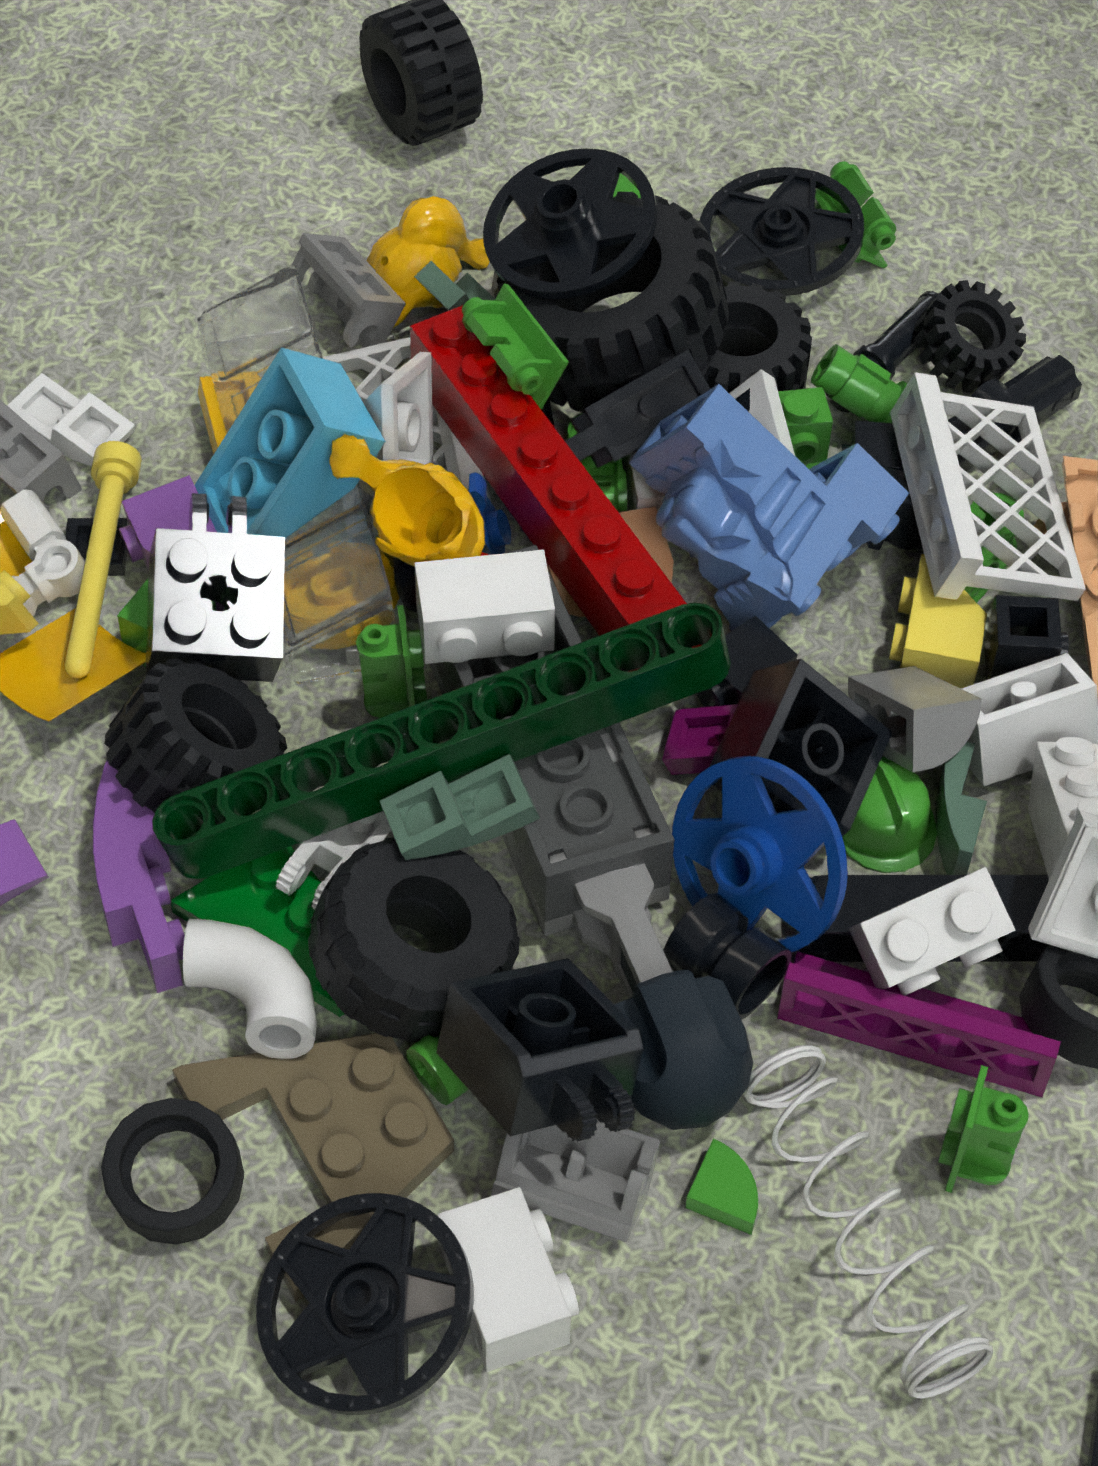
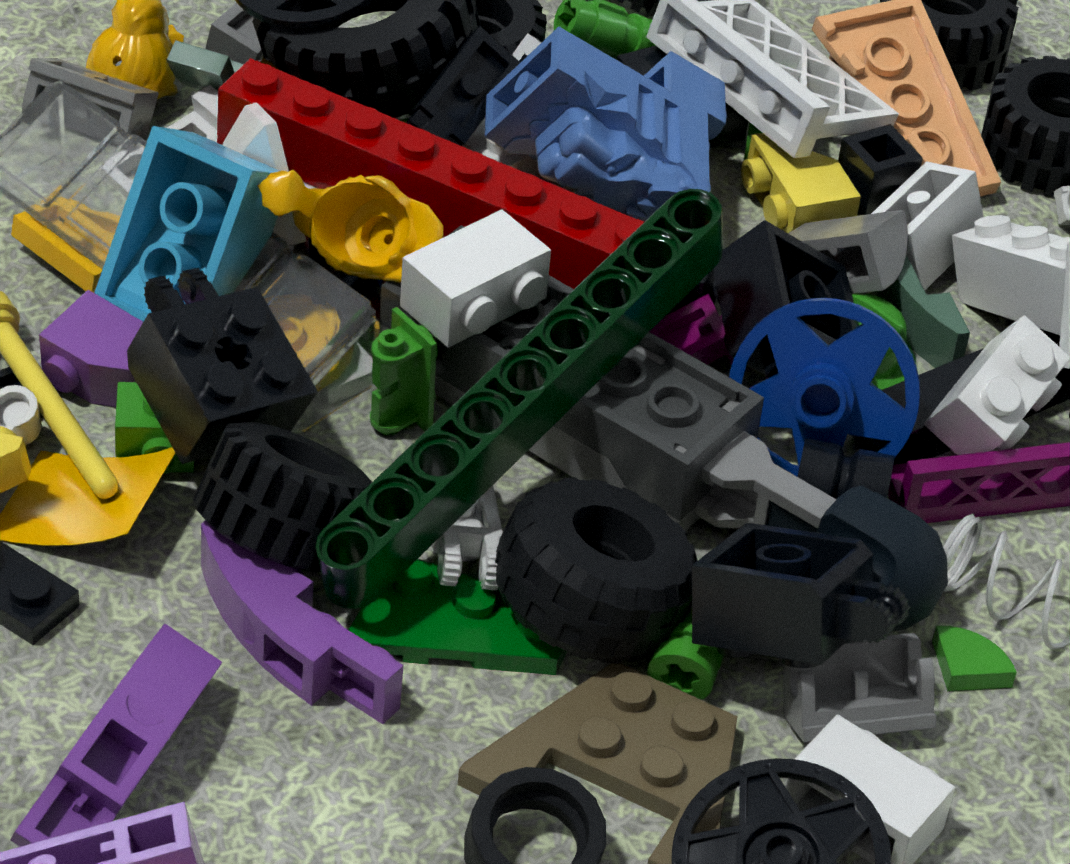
camera: 35 degrees left, 10 degrees down
(261, 976) = (484, 659): white cylinder -> none
(451, 816) = (581, 442): sand green slope -> none
(518, 343) = (336, 64): bright green hinge -> none

